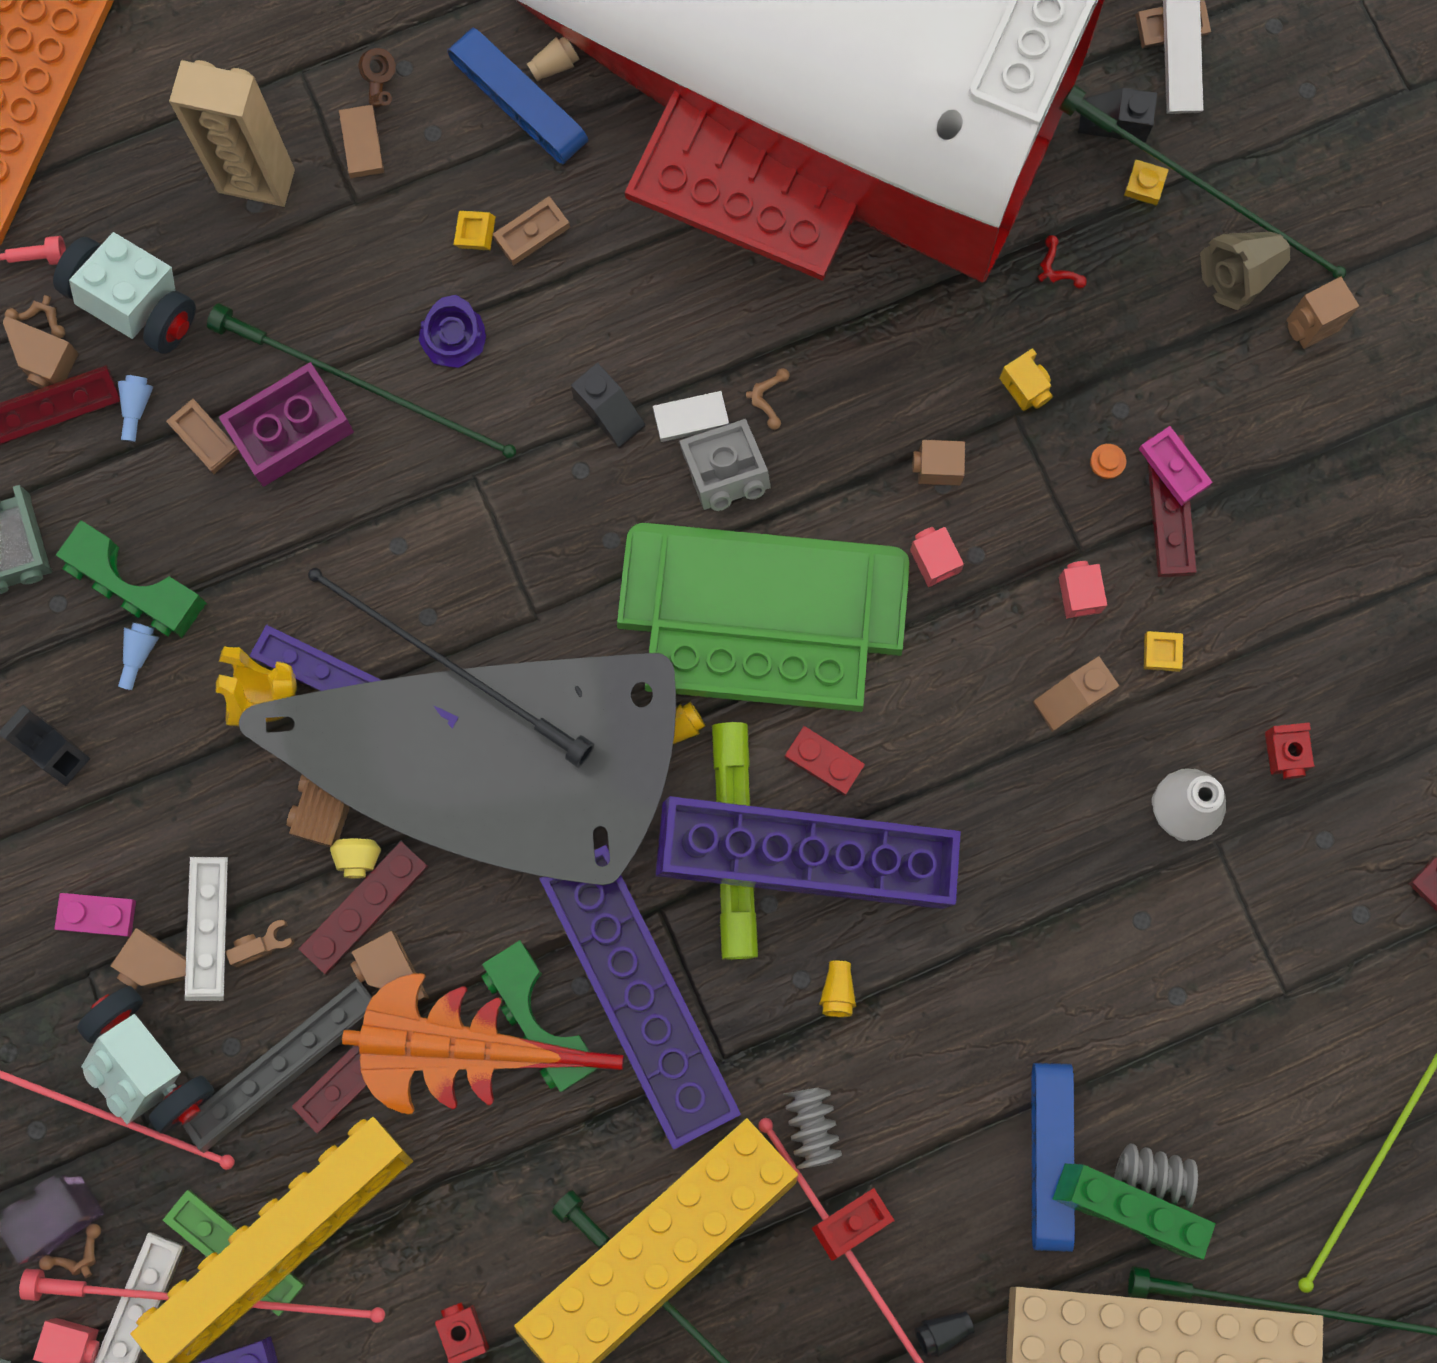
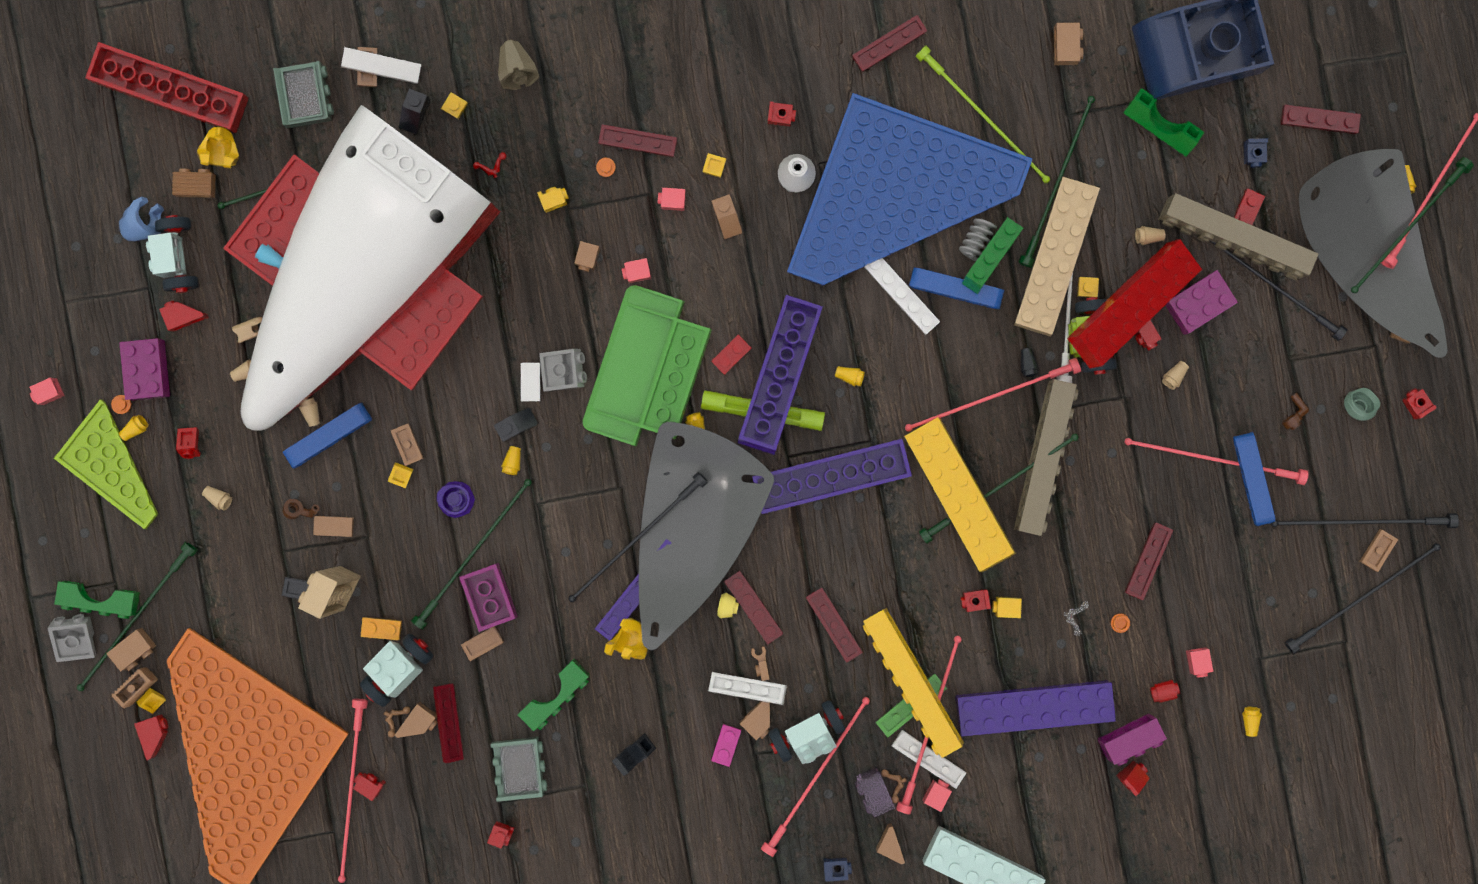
camera: 70 degrees left, 10 degrees up
(133, 398) = (454, 676): light blue cone -> none
(136, 648) = (590, 698): light blue cone -> none
(196, 259) = (381, 628): none -> light orange plate
(278, 1066) = (824, 663): dark grey tile -> none
(318, 815) = (702, 622): medium nougat brick -> none
(383, 962) = (788, 600): medium nougat slope -> none
(400, 1041) = (828, 601): orange animal -> none
(514, 976) = (853, 521): green arch -> none
(540, 414) = (511, 463): none -> yellow cone
(757, 396) = (526, 344): medium nougat piece -> none
(813, 1127) = (915, 404): light grey piece -> none
(852, 1224) = (967, 395): red plate -> none
(1026, 1036) = (902, 295): none -> white plate
(1075, 102) = (423, 119): dark green piece -> none
(1175, 465) = (618, 133): dark pink plate -> none
(1220, 996) = (895, 185): none -> blue plate
(1322, 313) = (553, 34): medium nougat brick -> none

